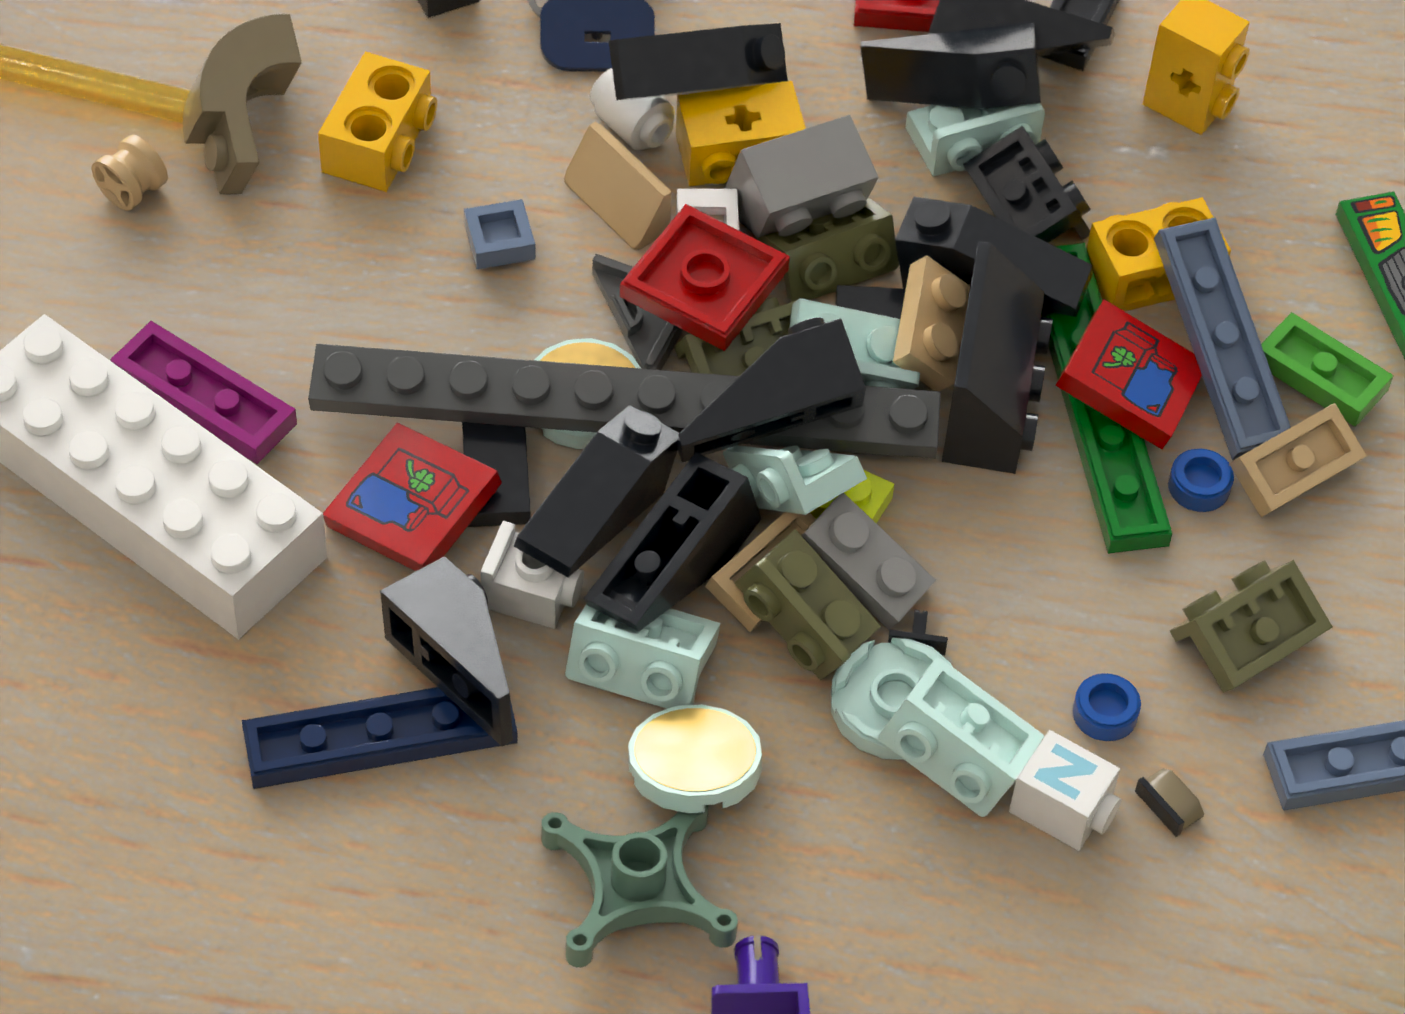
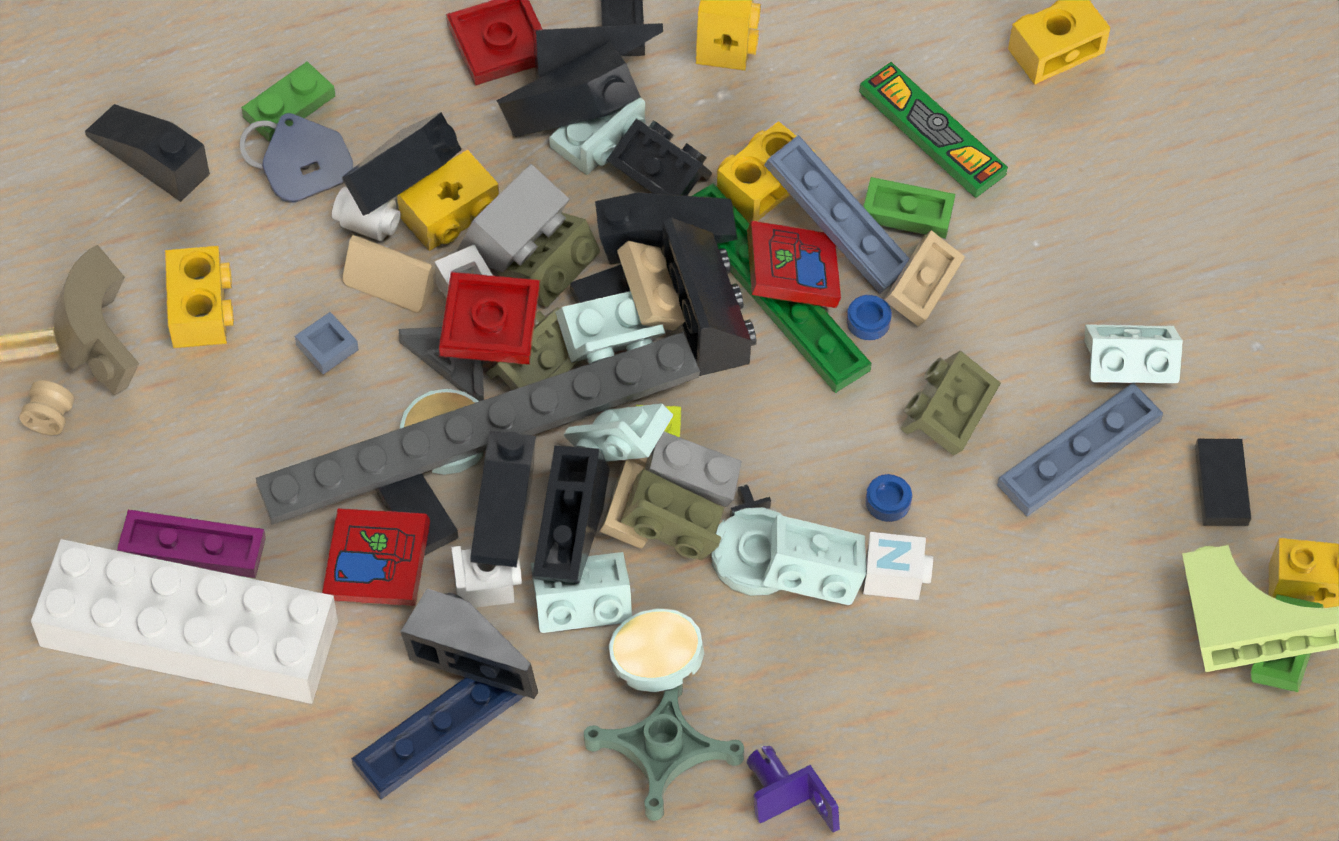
camera: 25 degrees left, 5 degrees up
(789, 385) = (594, 370): black slope -> none
(1170, 800) = (957, 541): piece -> none

